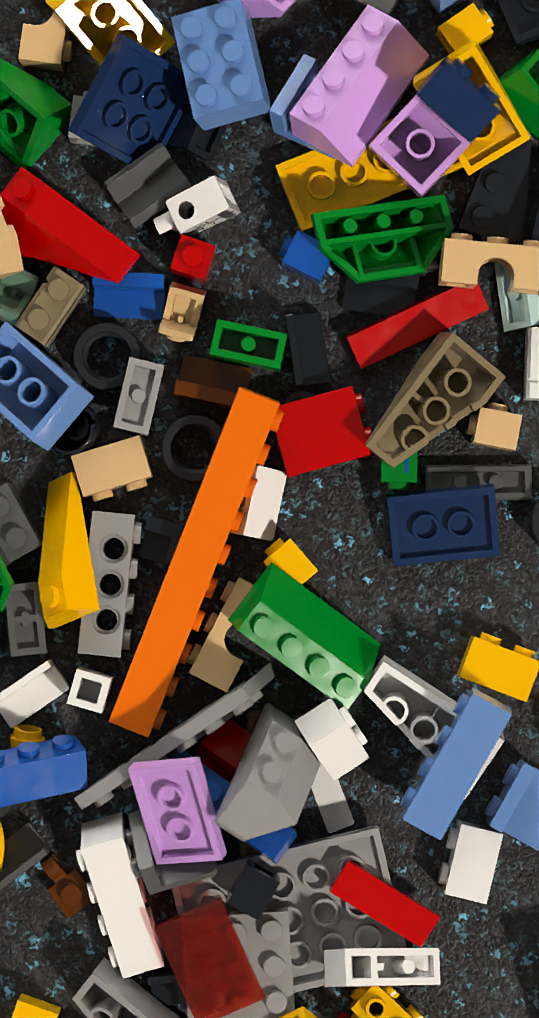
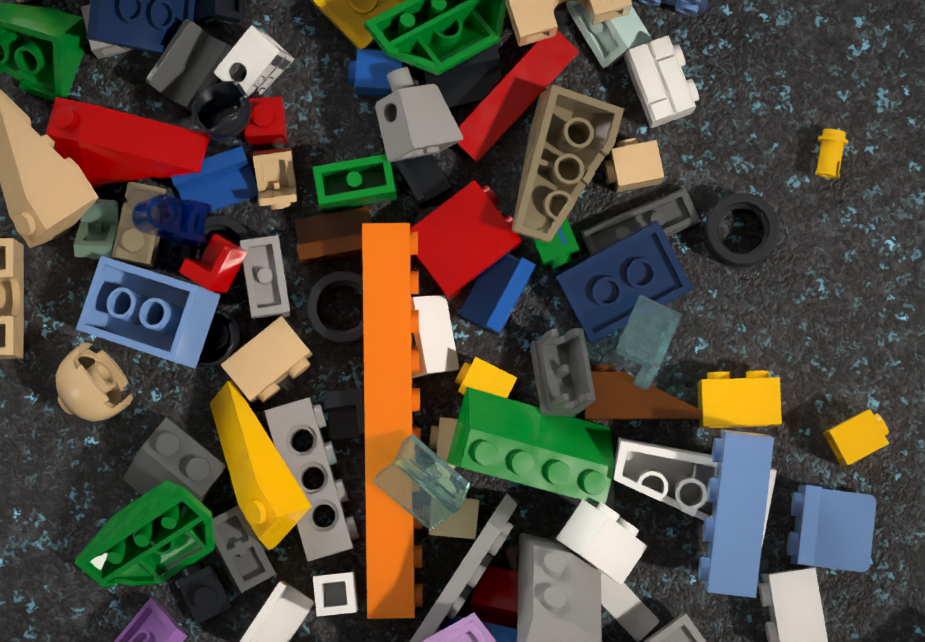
camera: 25 degrees left, 5 degrees down
(84, 319) = (180, 219): none -> clear blue piece
(101, 370) = (217, 265): none -> red panel
(159, 239) = (222, 110): none -> black hair
(201, 629) = (423, 483): none -> clear light blue panel
(321, 312) = (414, 119): none -> light grey torso
(331, 489) = (497, 293): none -> blue panel
(358, 582) = (562, 373): none -> dark grey hinge
(403, 624) = (623, 401): none -> reddish brown slope
(443, 582) = (648, 338): none -> clear light blue panel

